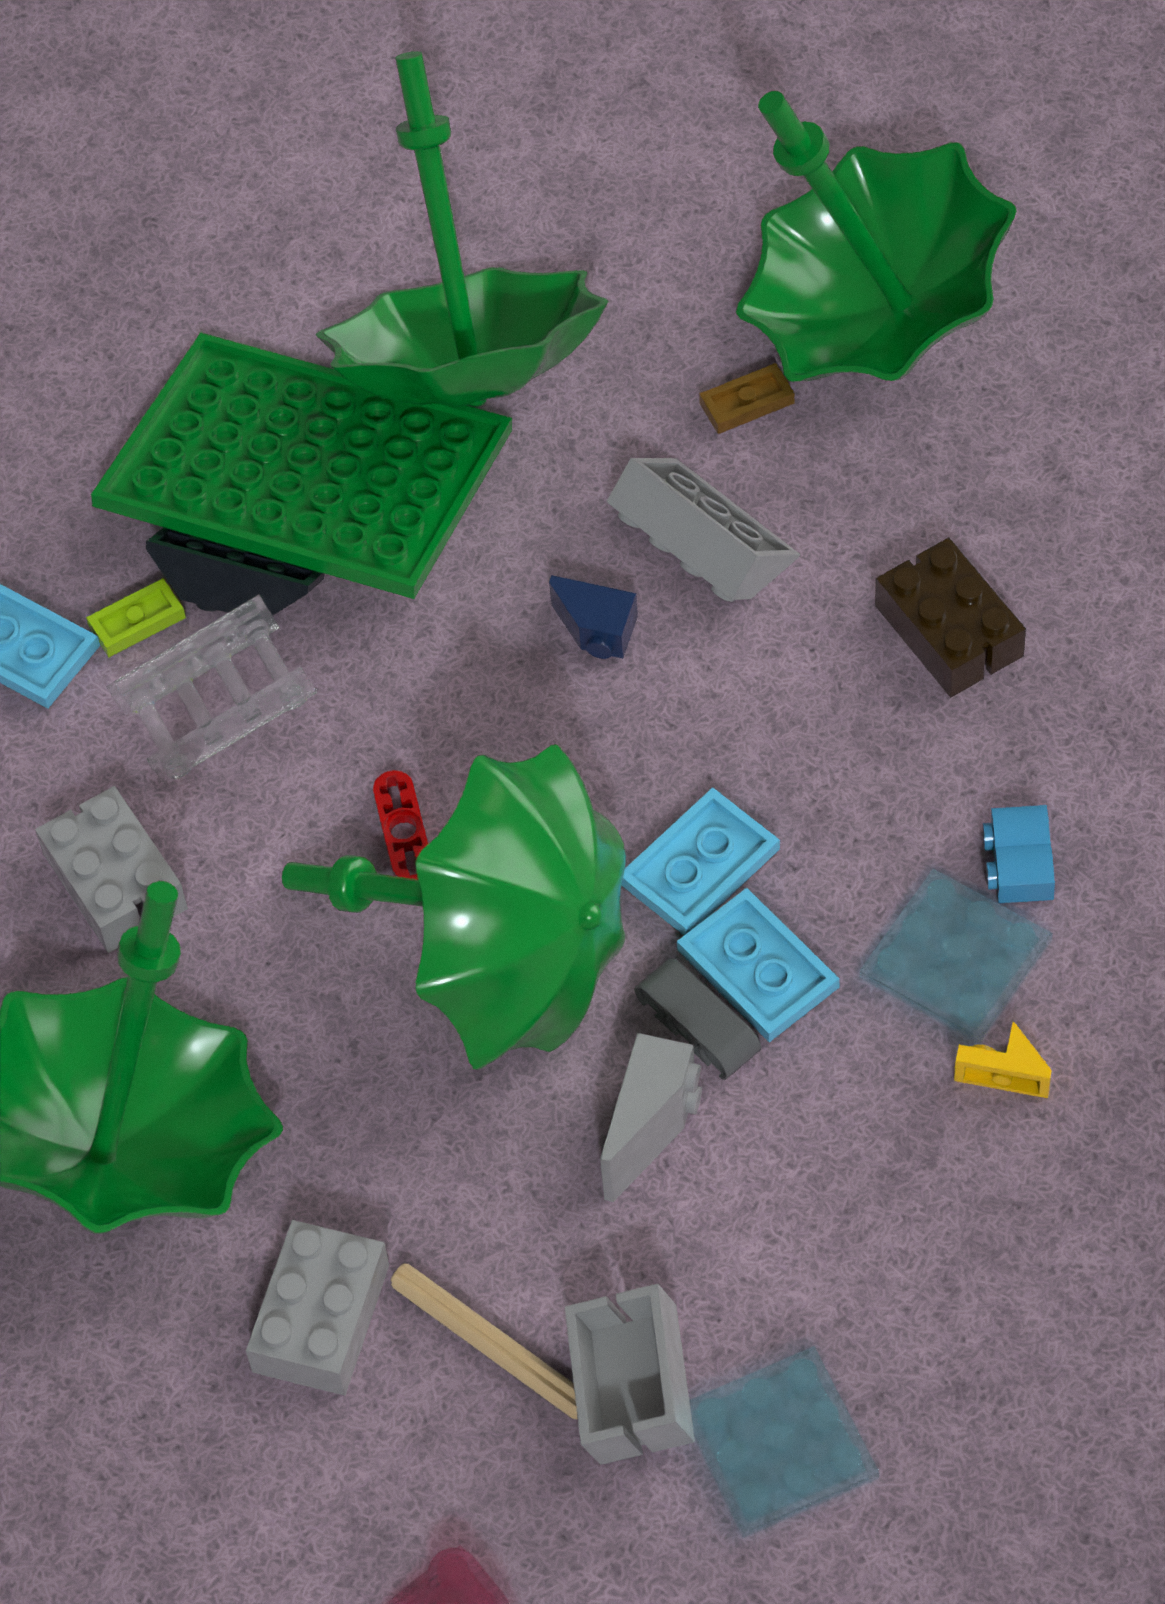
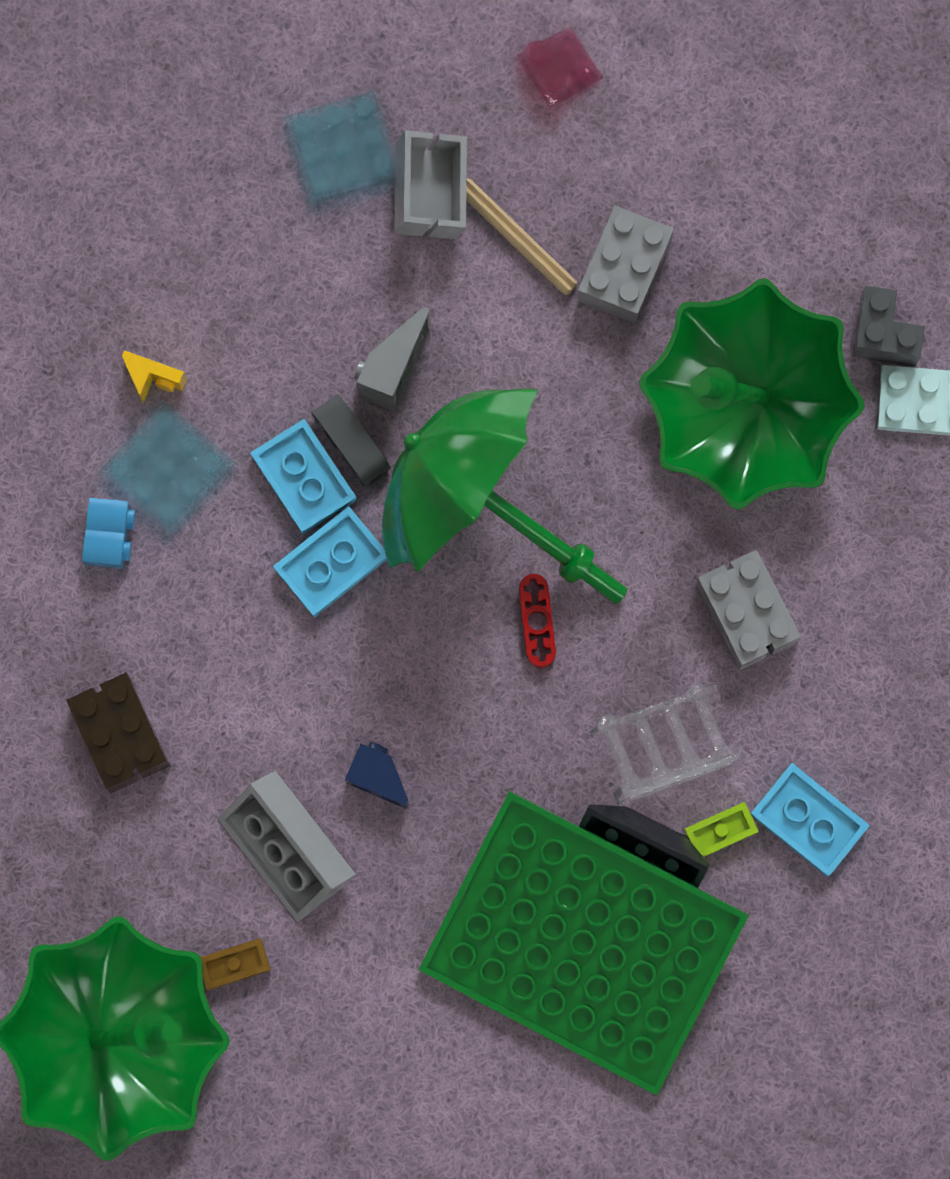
camera: 175 degrees left, 20 degrees up
(470, 332) = (447, 1030): green piece -> none

